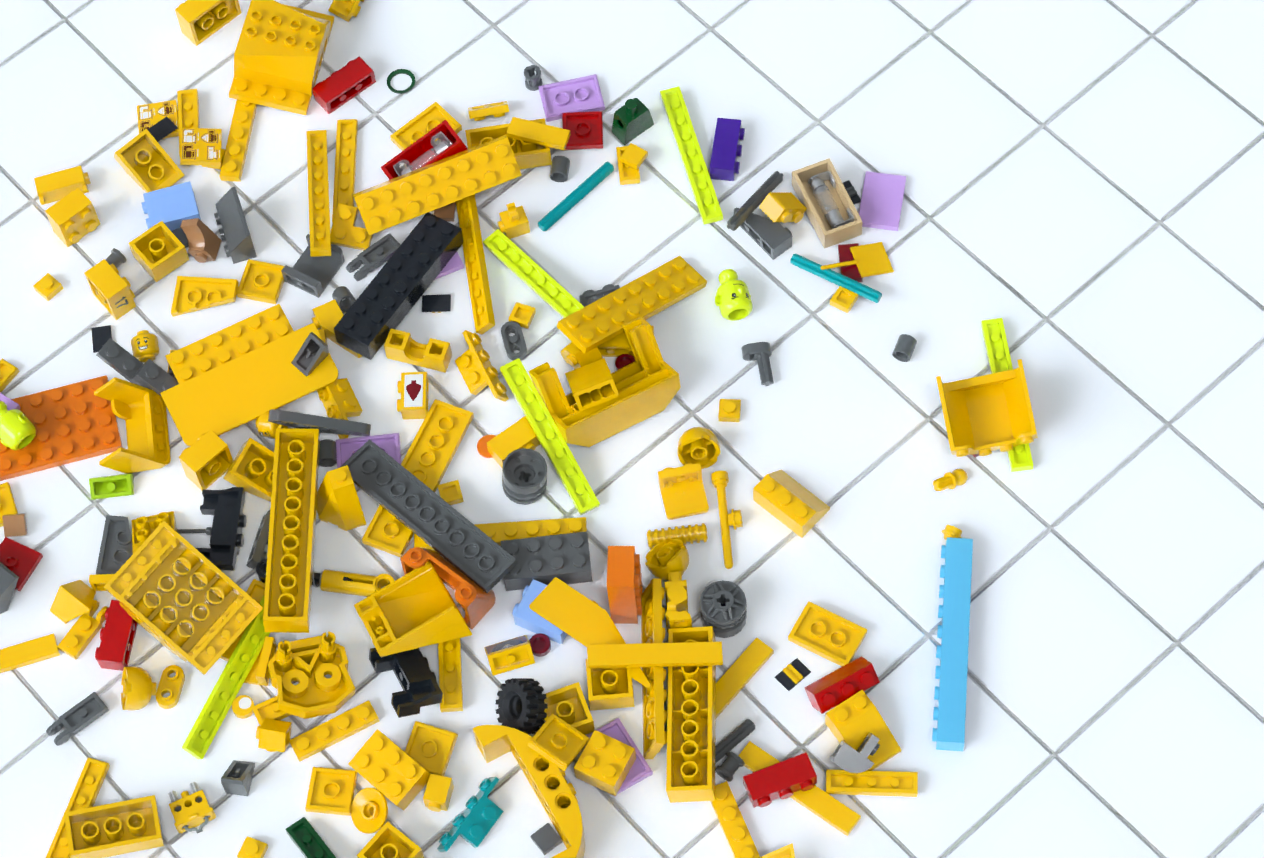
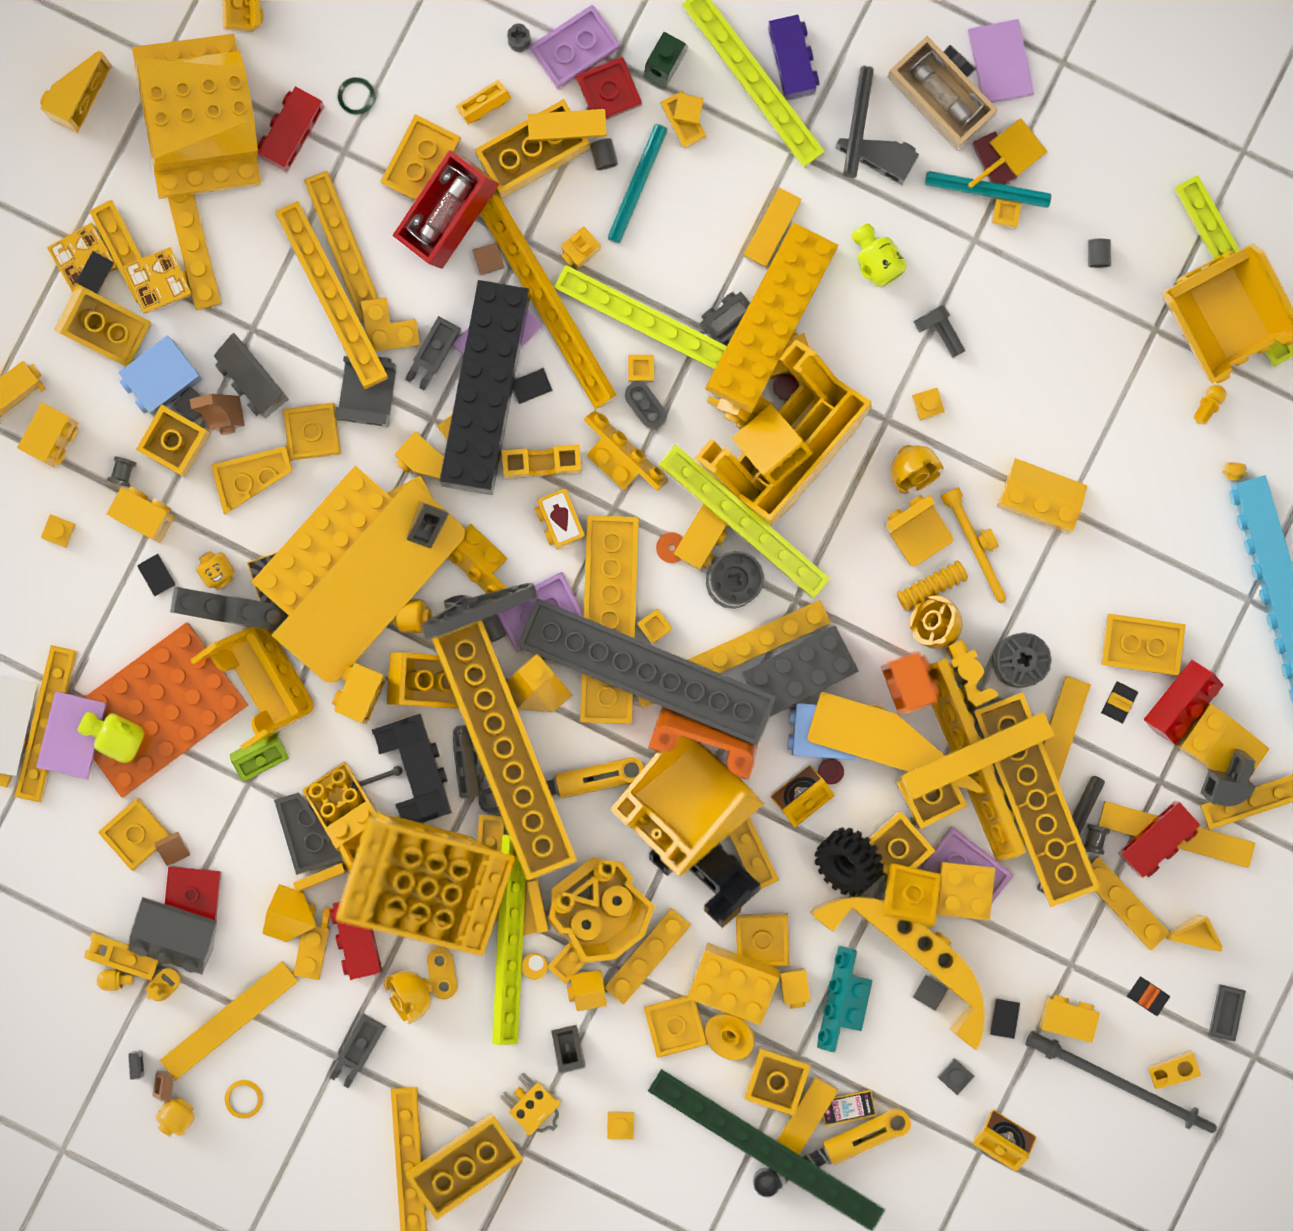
camera: 30 degrees left, 25 degrees up
(341, 293) = (423, 423): dark grey beam -> none
(437, 185) = (478, 243): yellow brick -> none
(666, 251) = (772, 227): none -> yellow tile
(783, 207) = (896, 121): yellow brick -> none

